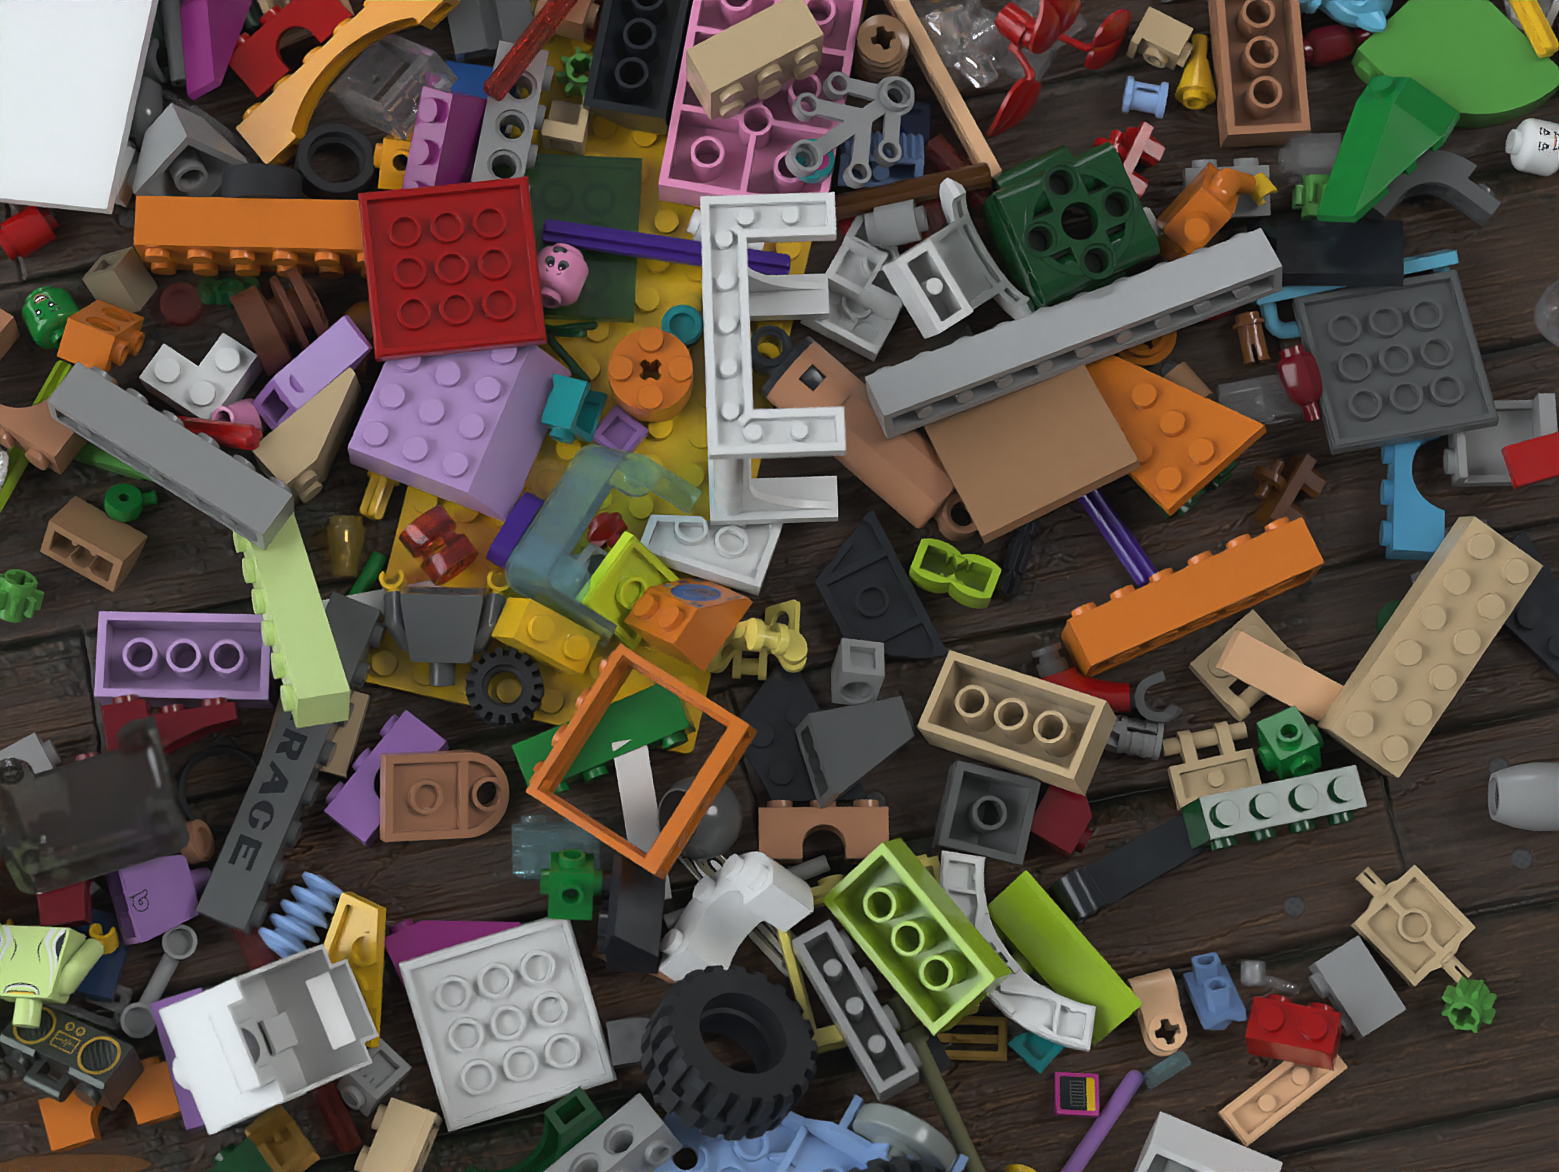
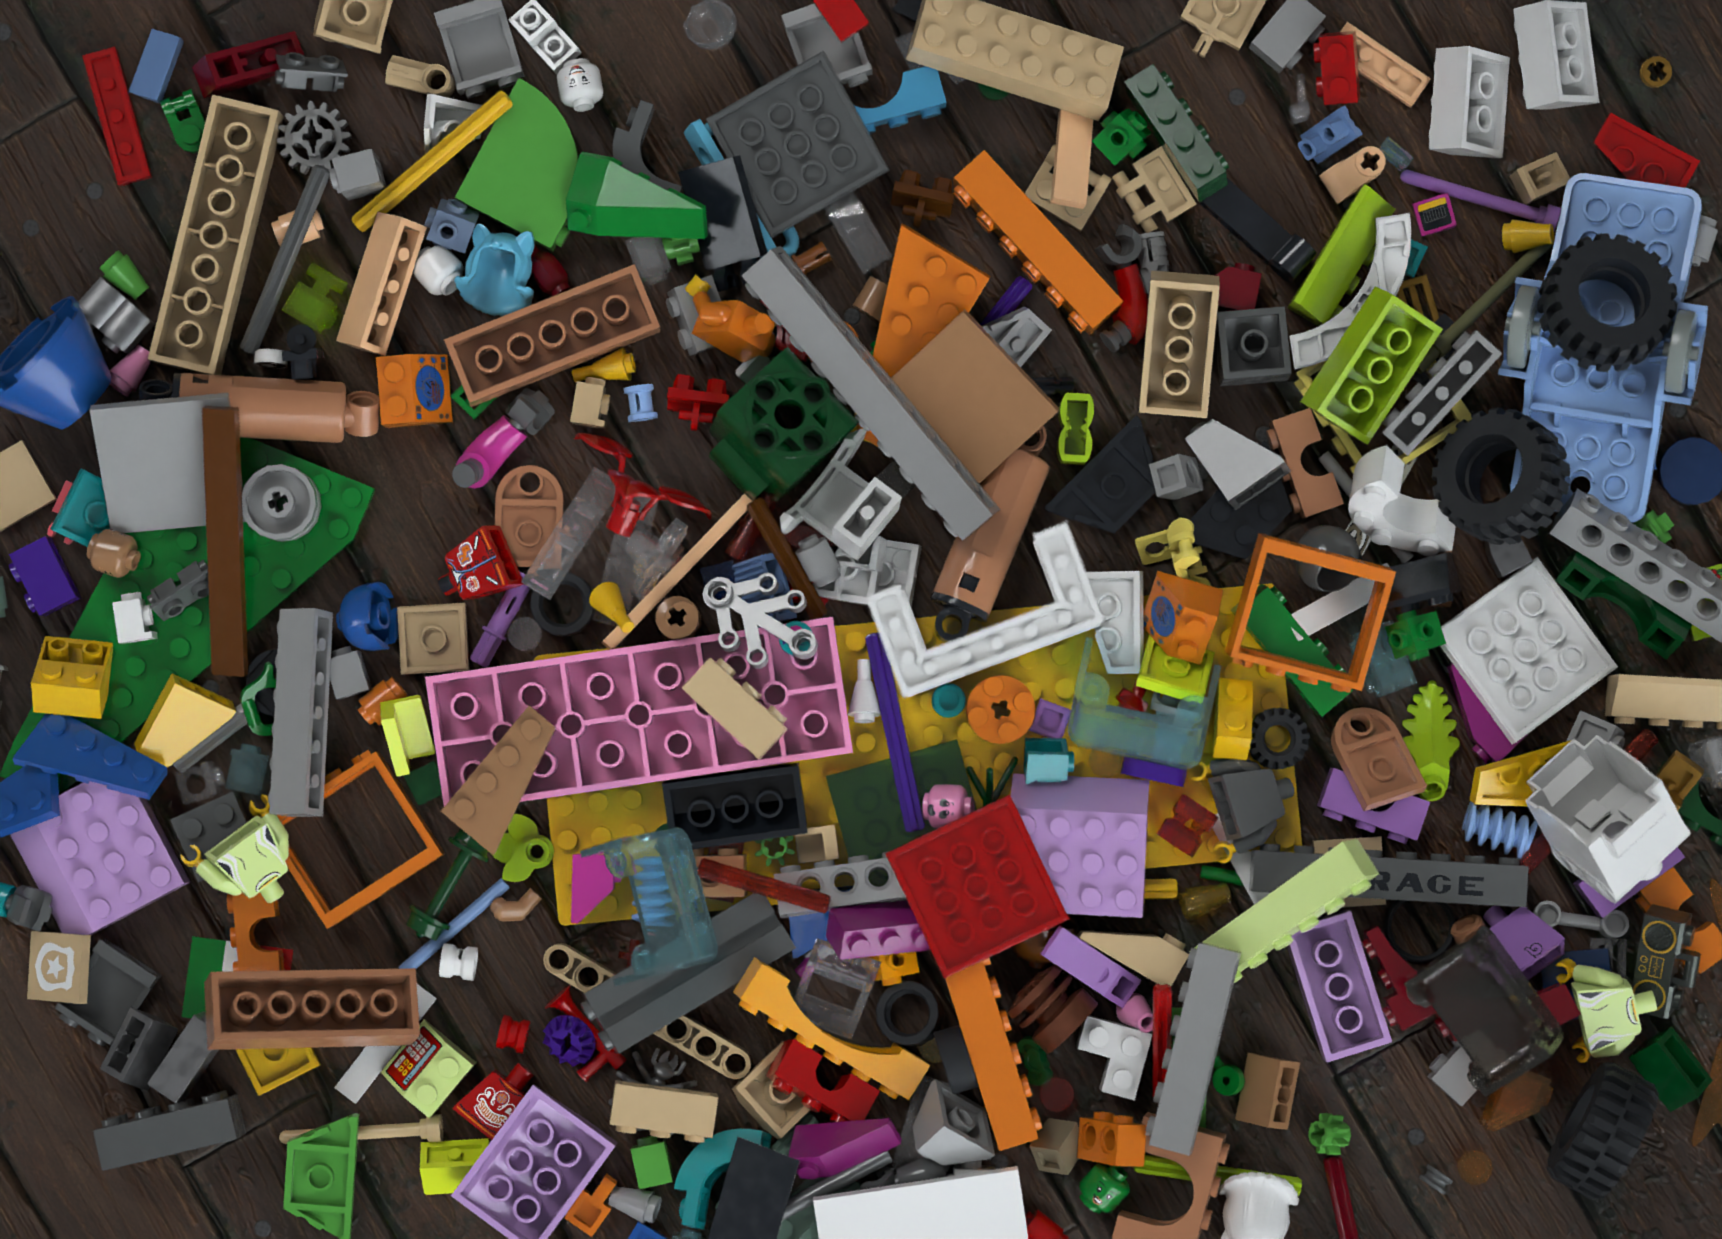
camera: 100 degrees left, 10 degrees up
(436, 874) = (1430, 739): none -> lime plant
(1085, 535) = (1018, 333): none -> light grey wing
(1301, 380) = (839, 211): dark red plant -> none

